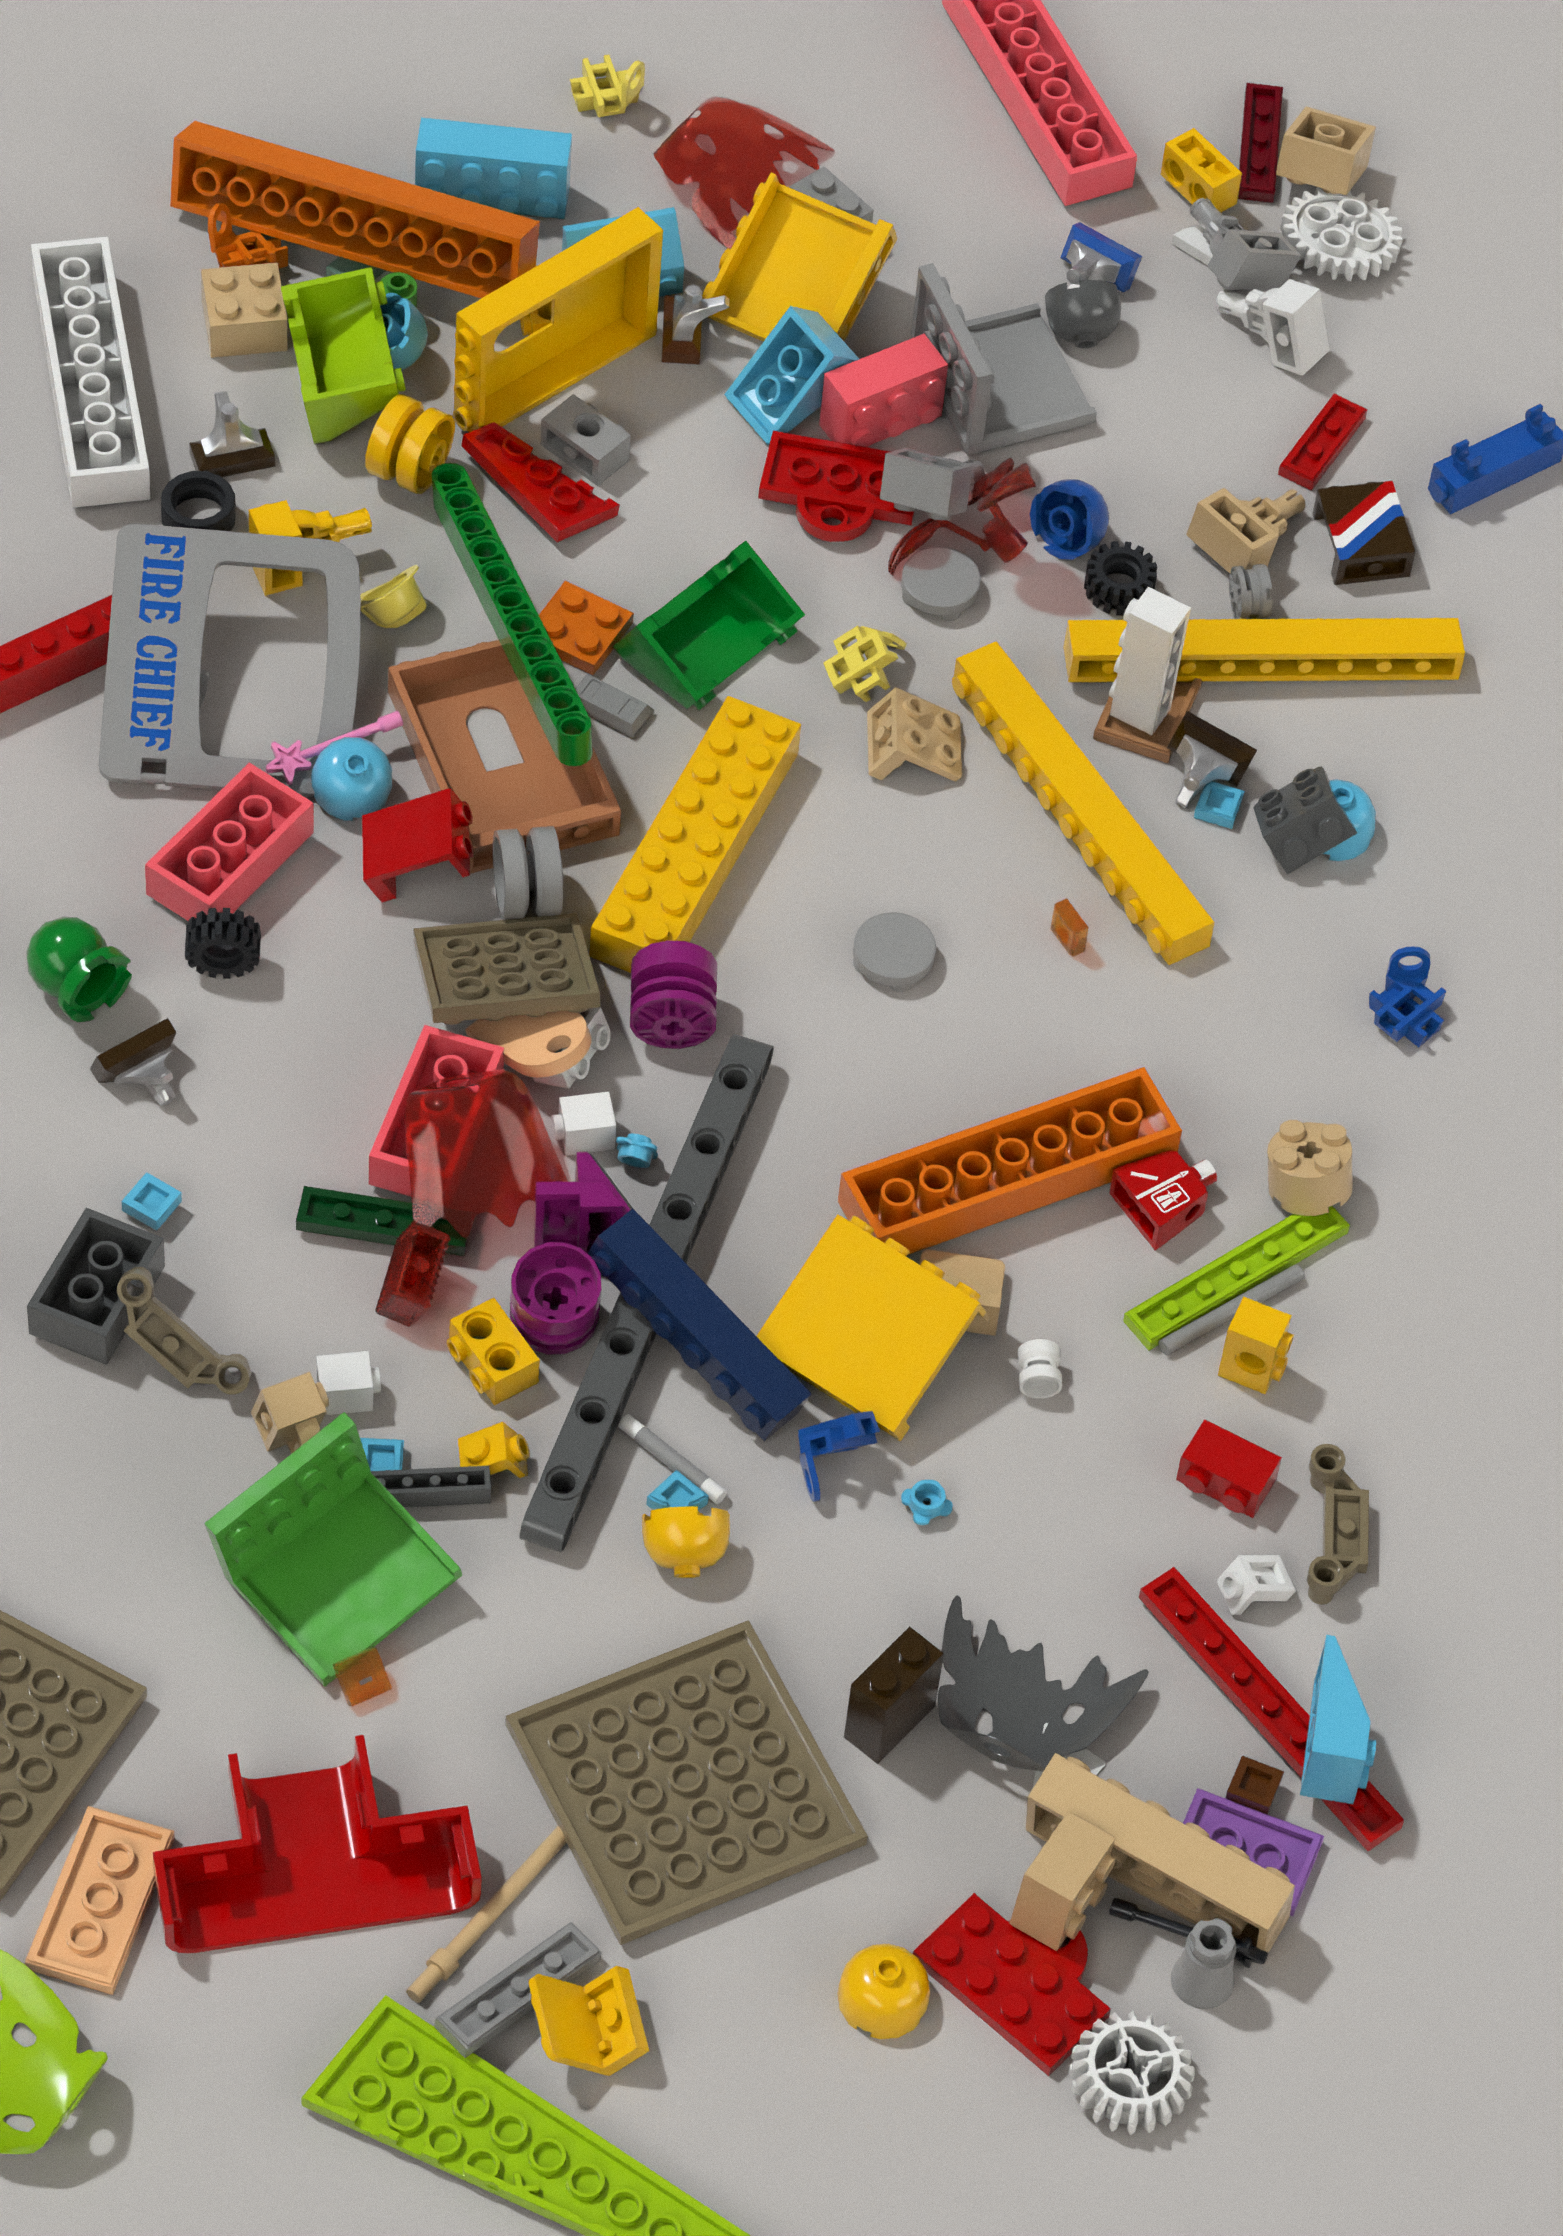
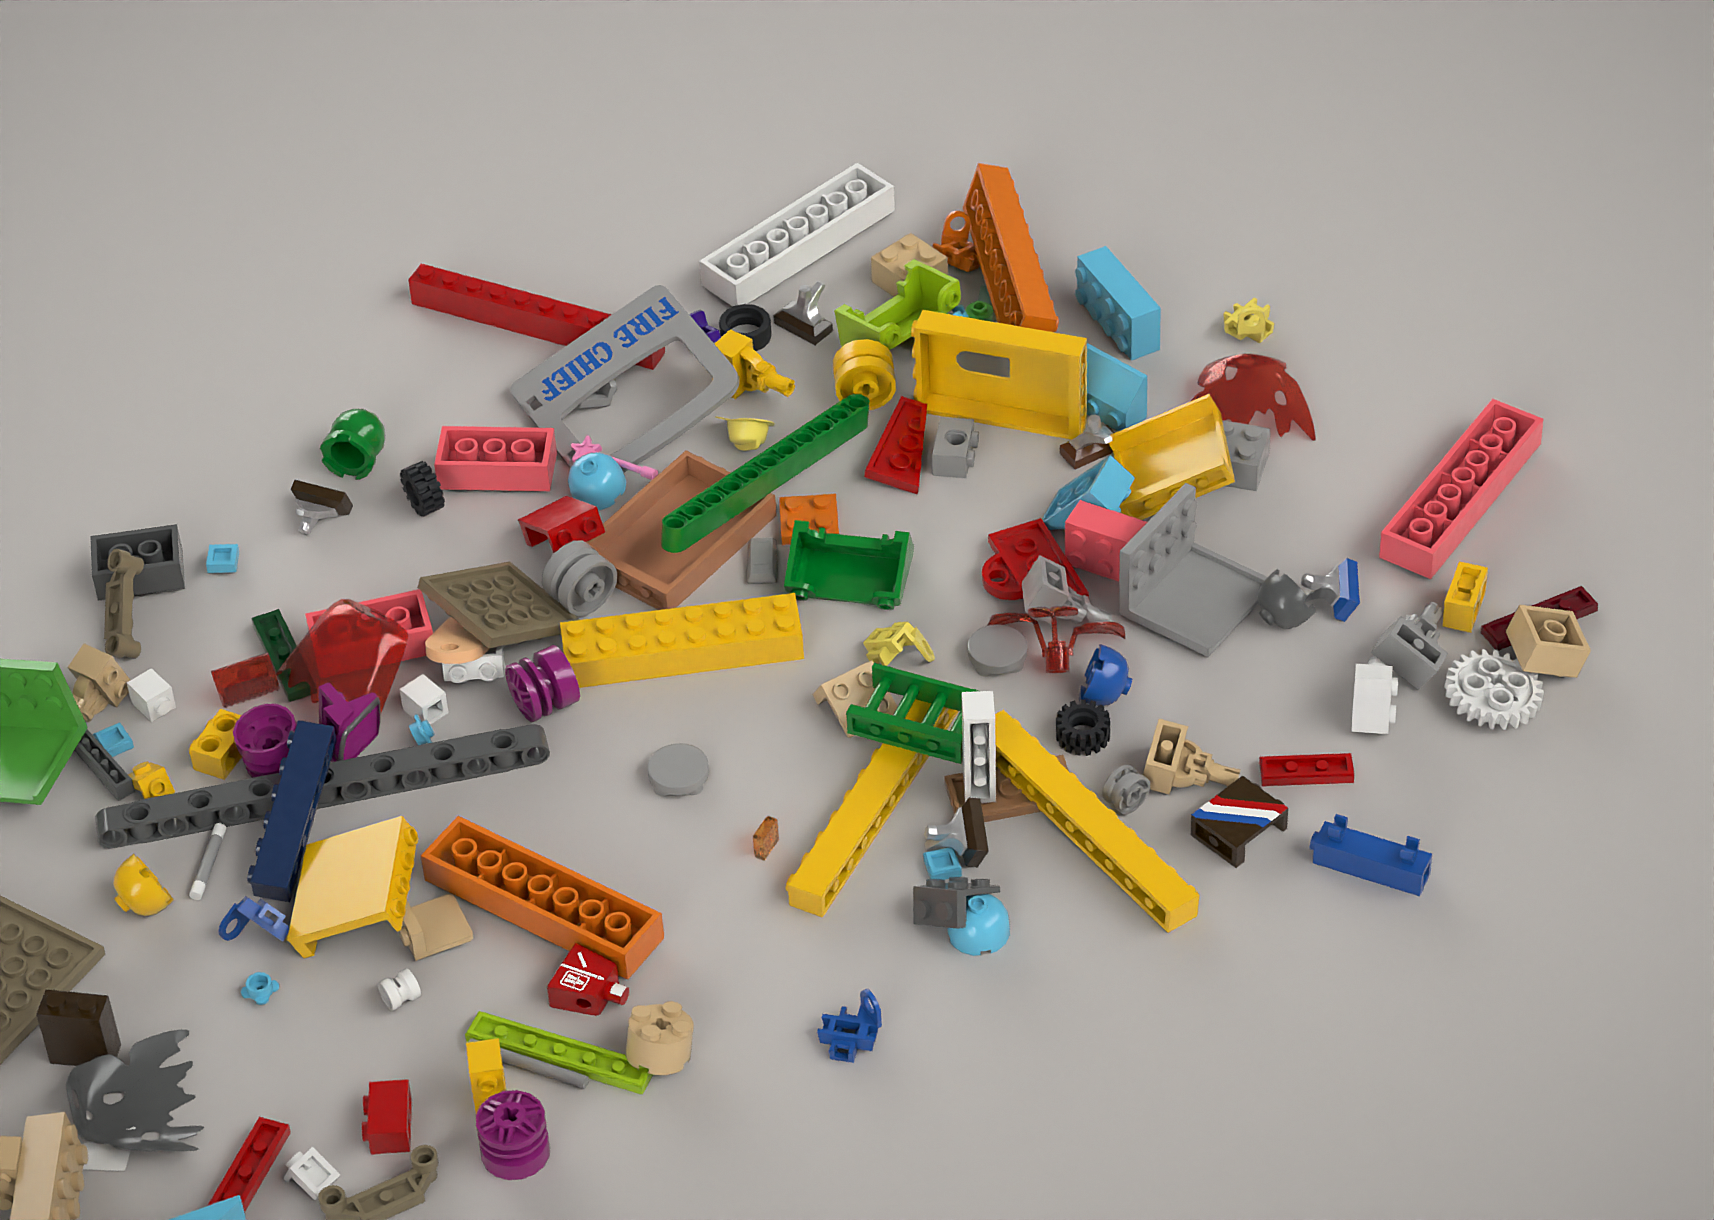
camera: 65 degrees right, 10 degrees down
(677, 1492) = (182, 876): medium azure tile -> none
(1025, 724) = (905, 733): none -> green fence
(1352, 1365) = (512, 1135): none -> magenta wheel

